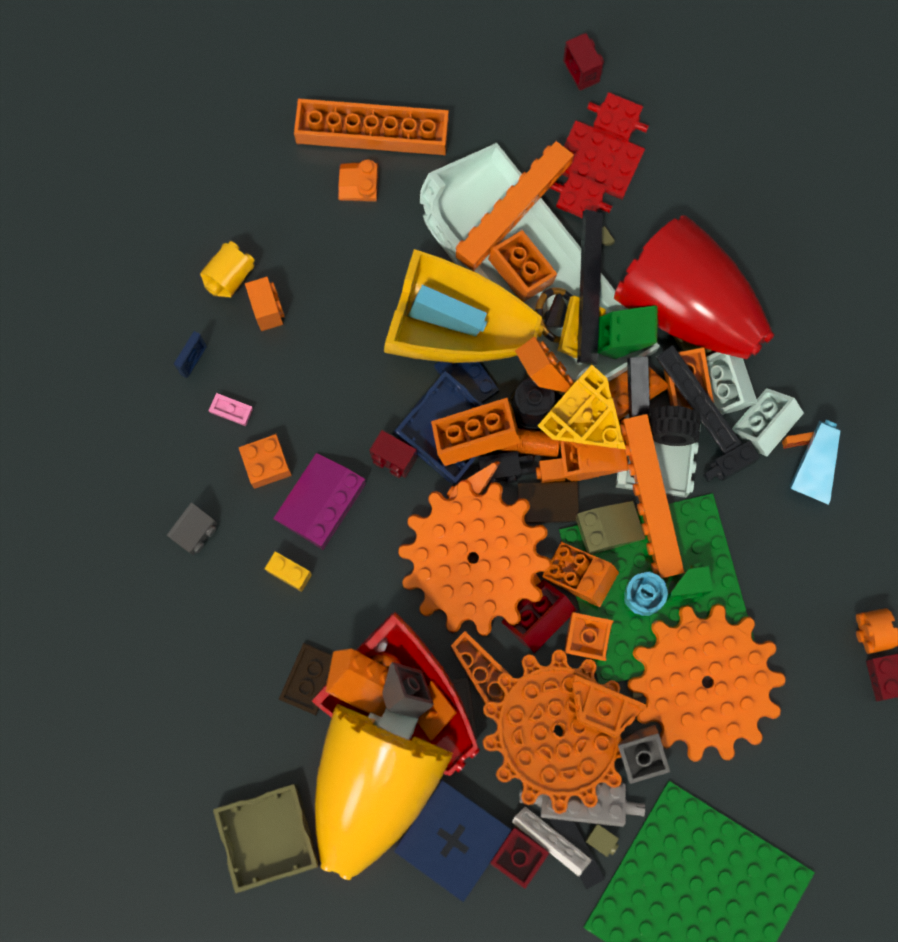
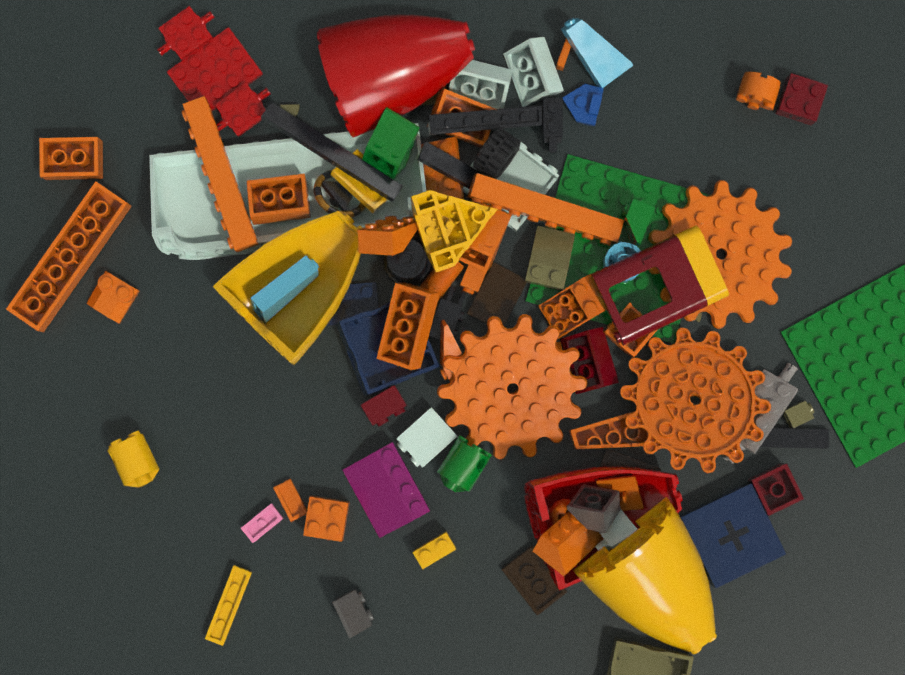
camera: 60 degrees left, 10 degrees up
(142, 420) = (228, 605): none -> yellow plate
(190, 354) = (194, 532): dark blue tile -> none
(265, 303) = (183, 443): orange brick -> none
(265, 422) = (290, 500): none -> orange tile
(378, 553) = (463, 465): none -> green cylinder
(385, 508) = (426, 438): none -> light aqua brick
(456, 83) = (71, 158): none -> orange brick
(551, 841) = (777, 455): white plate -> none
(583, 61) = (116, 33): dark red brick -> none
(603, 707) = (697, 352): orange wing -> none
(643, 755) = (751, 341): dark grey slope -> none
(671, 654) = (686, 272): none -> dark red piece
(767, 483) = (584, 103): none -> blue plate

